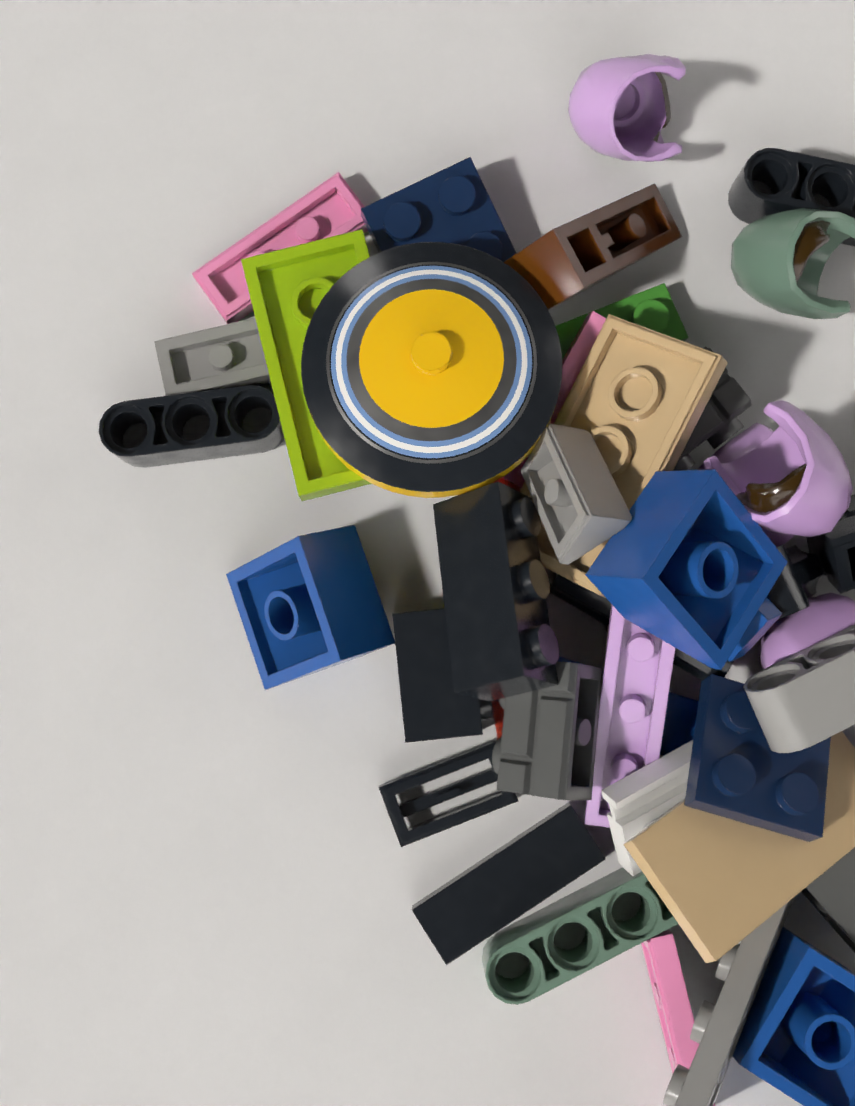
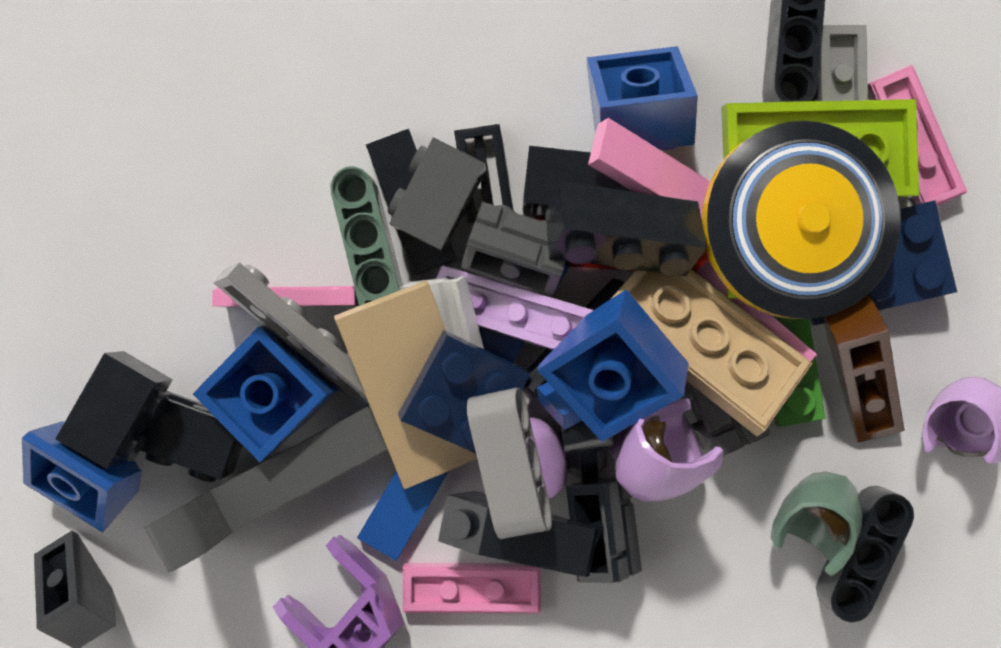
camera: 100 degrees right, 5 degrees up
(402, 583) = (643, 166): none -> bright pink tile
(500, 854) = (436, 194): none -> dark grey brick
(573, 492) = (687, 301): light grey slope -> none

